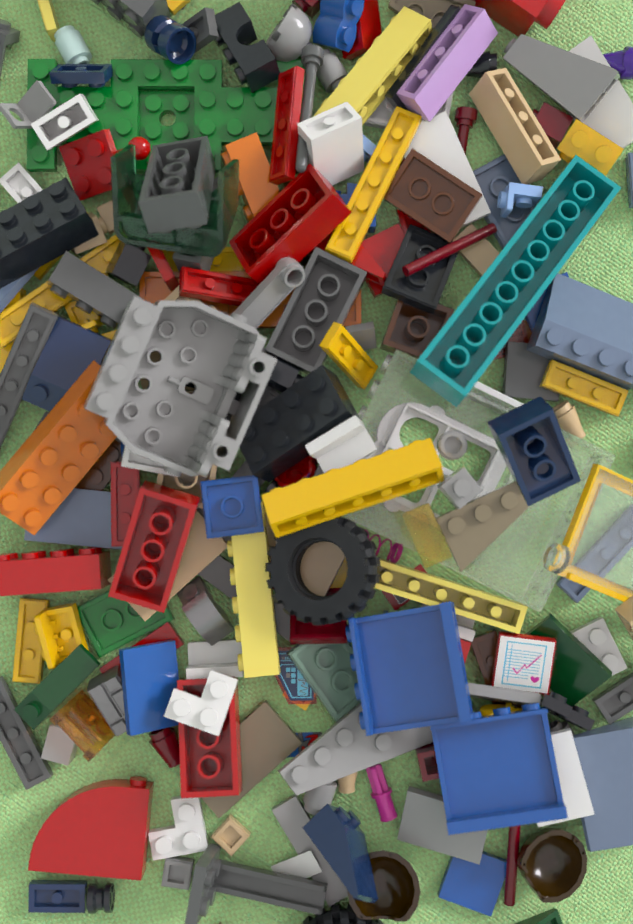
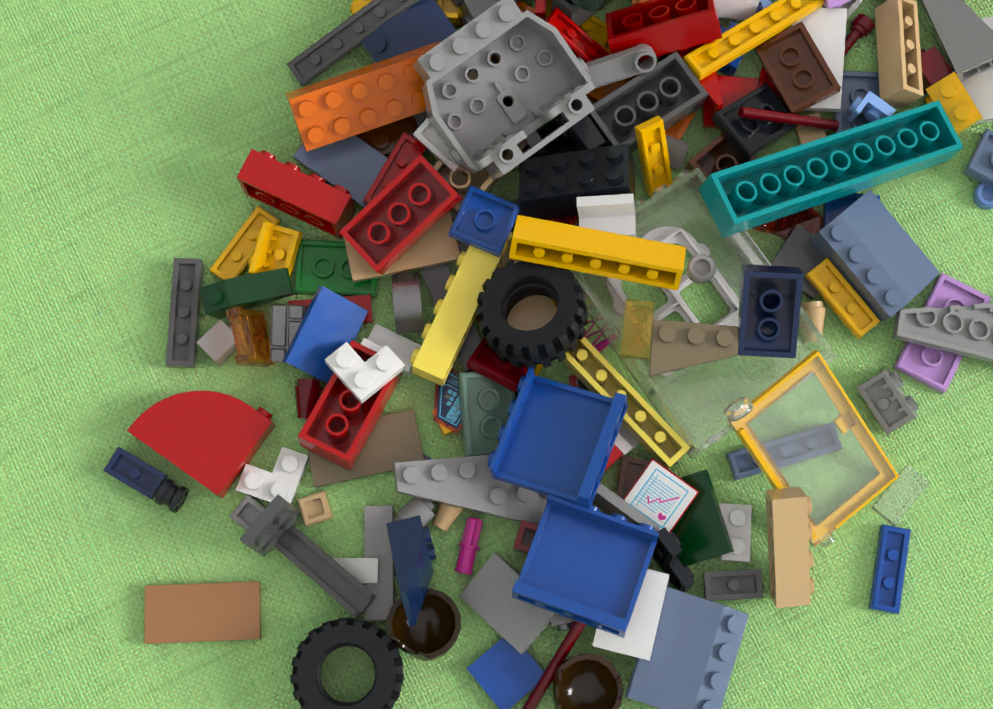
camera: 30 degrees right, 10 degrees down
(459, 488) = (687, 303): light grey brick -> none

